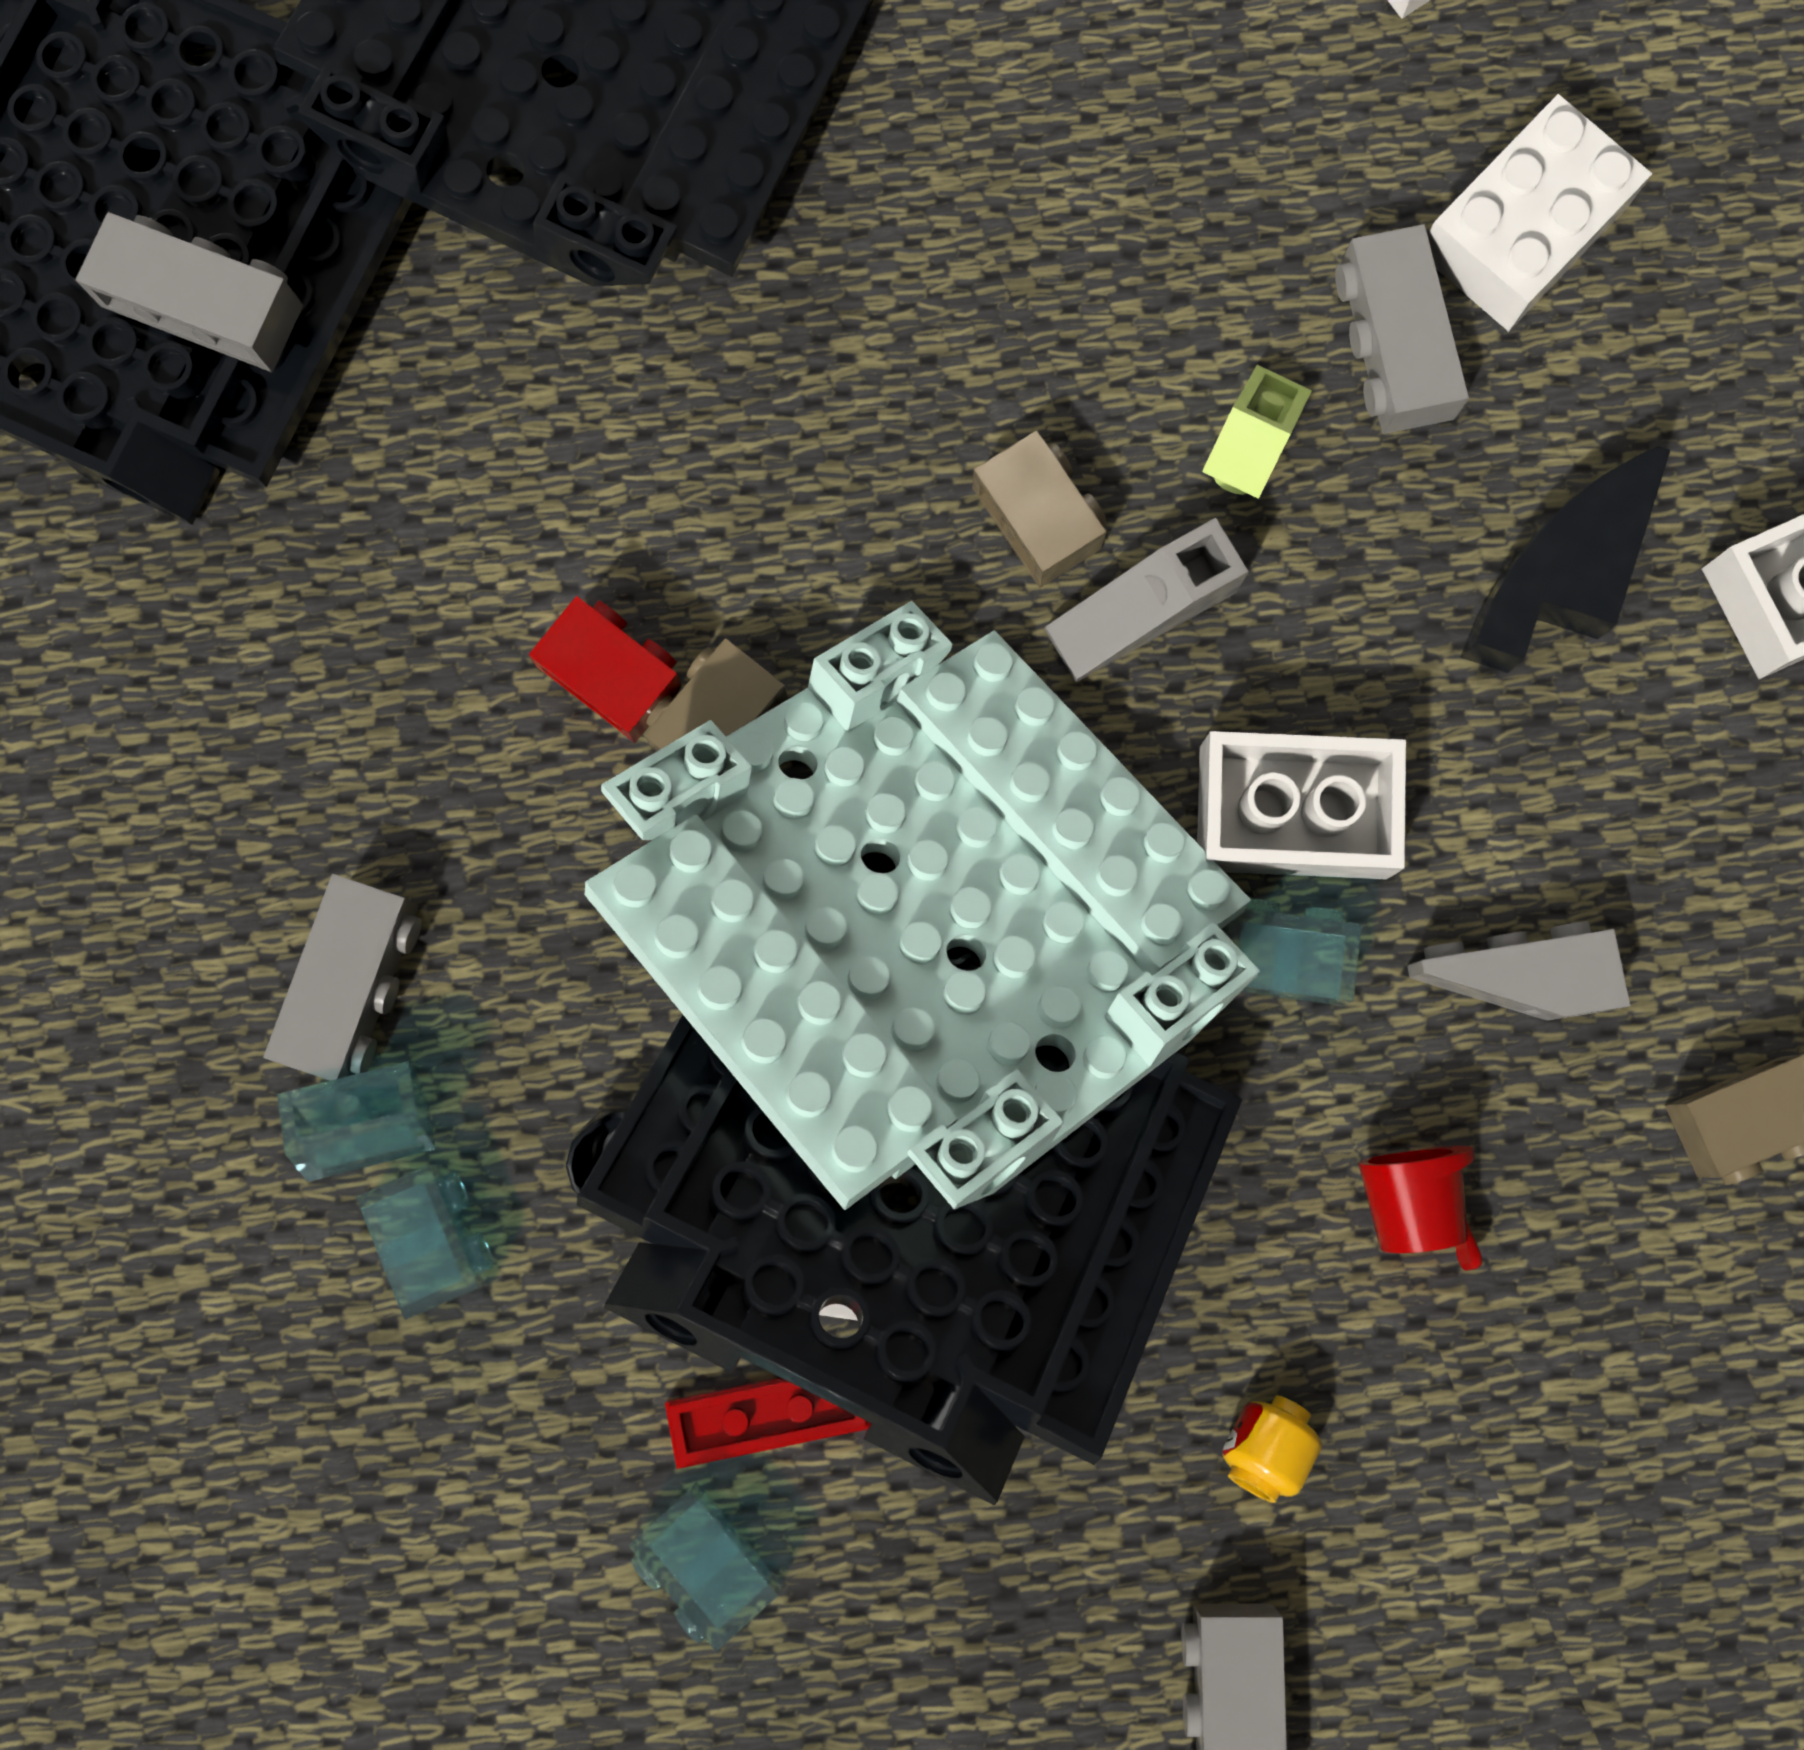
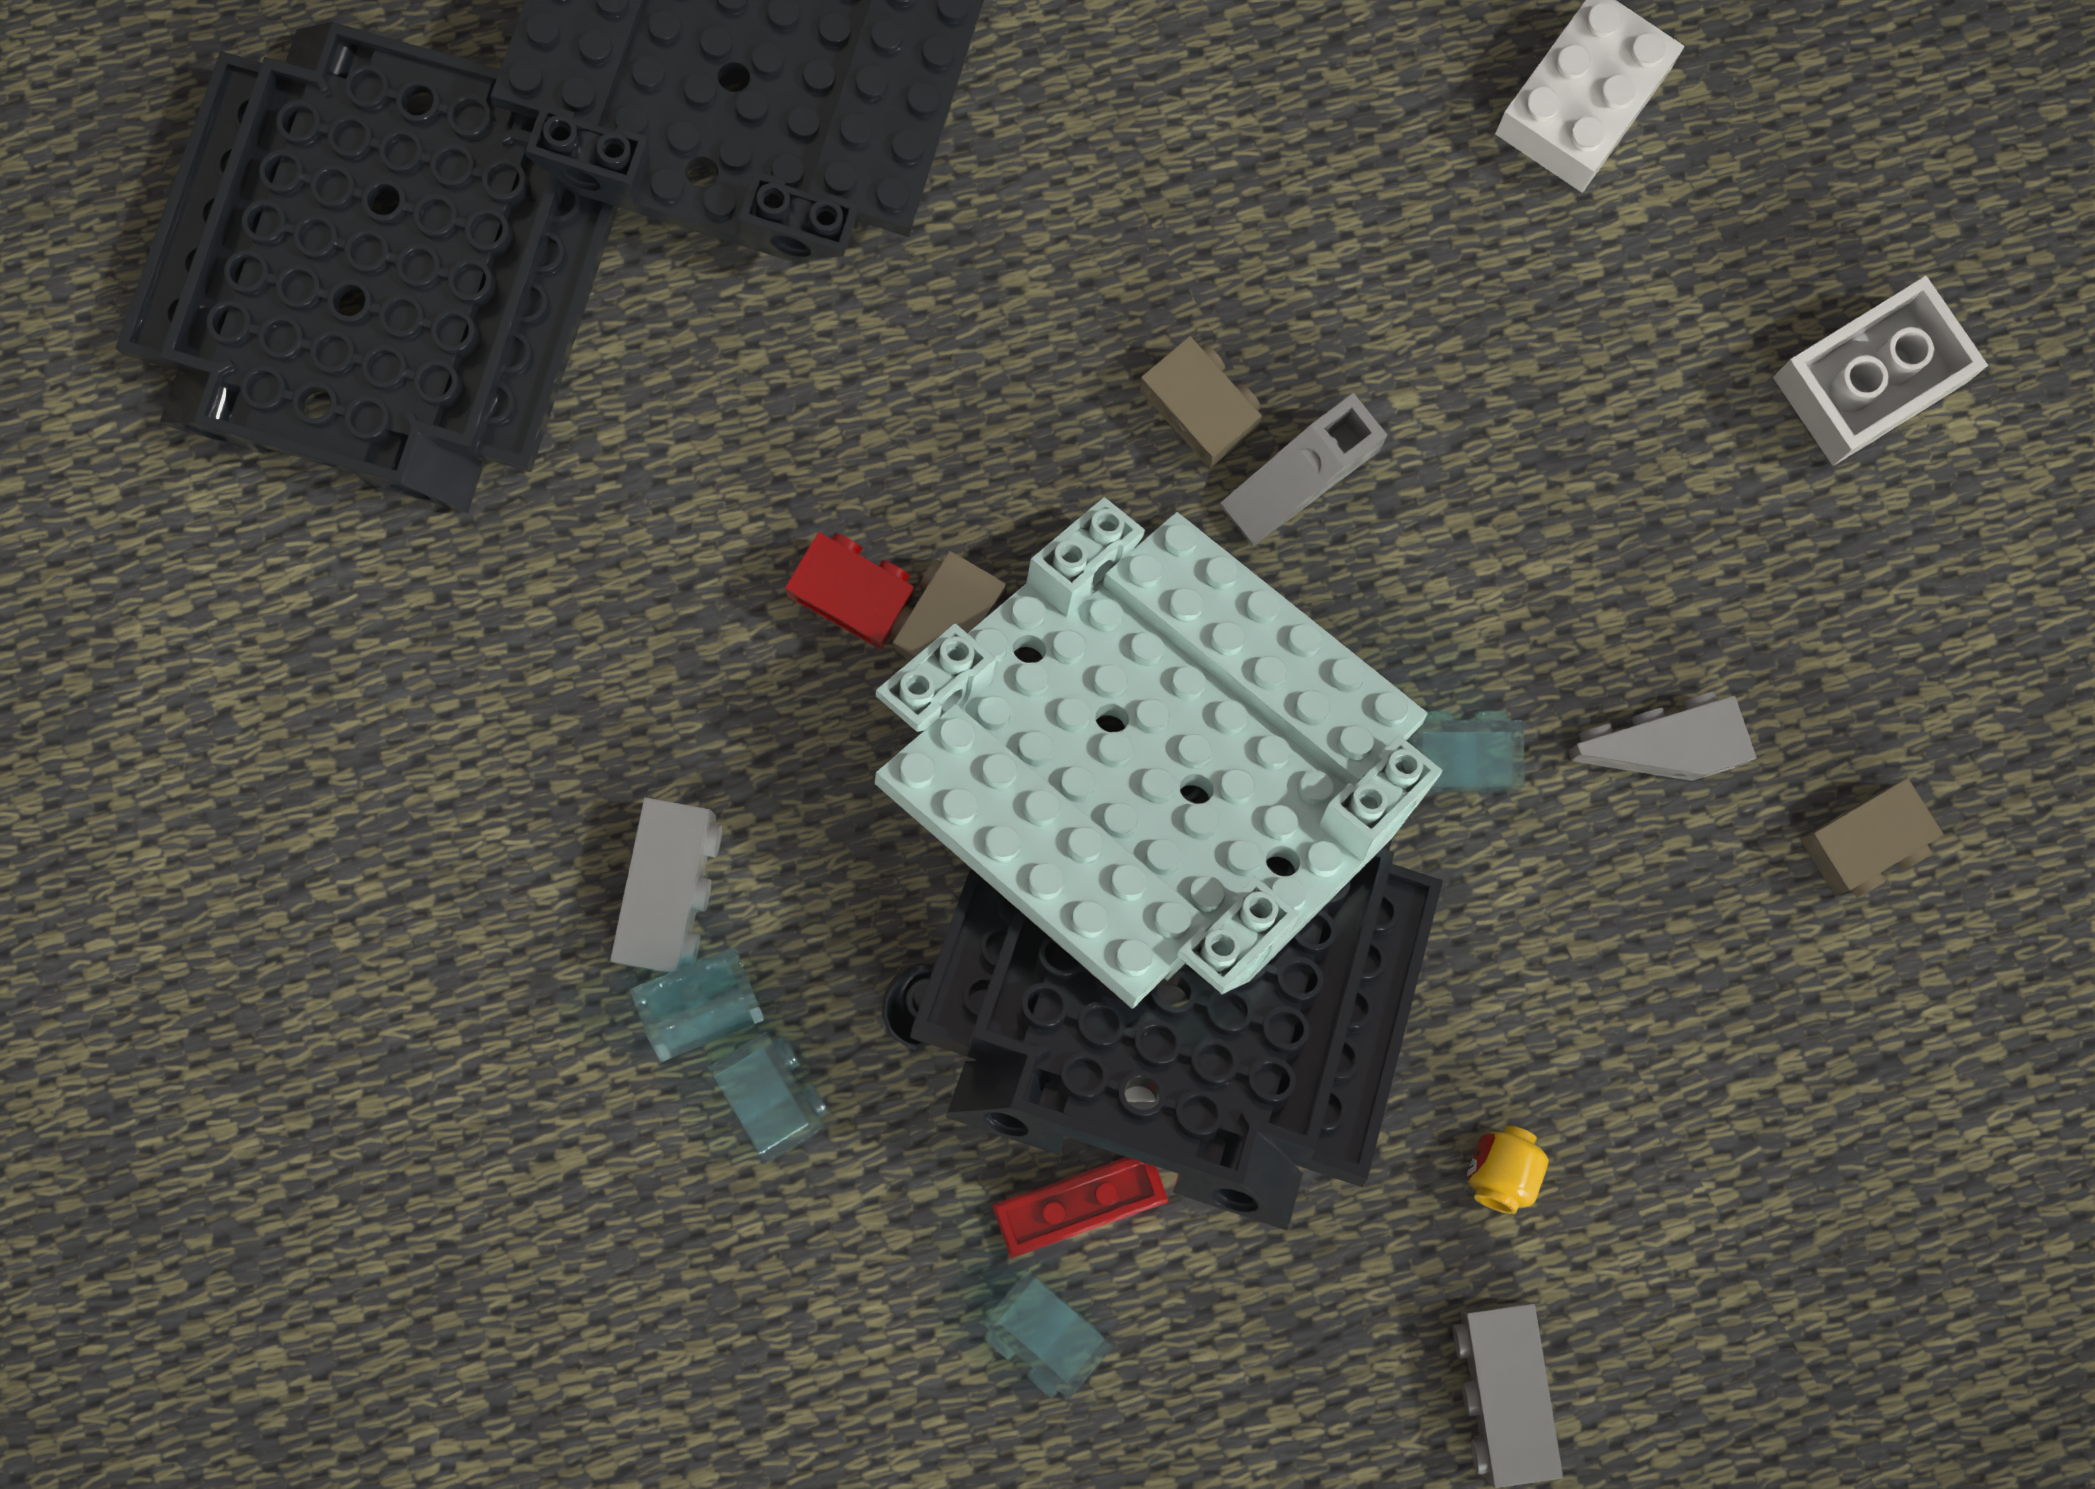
camera: 10 degrees left, 0 degrees up
(190, 289) = (451, 314): light grey brick -> none
(1256, 432) = (1378, 310): yellowish green slope -> none
(1302, 804) = (1459, 626): white brick -> none
(1401, 329) = (1489, 206): light grey brick -> none
(1421, 1201) = (1604, 946): red hat -> none
(1573, 567) = (1661, 392): black slope -> none

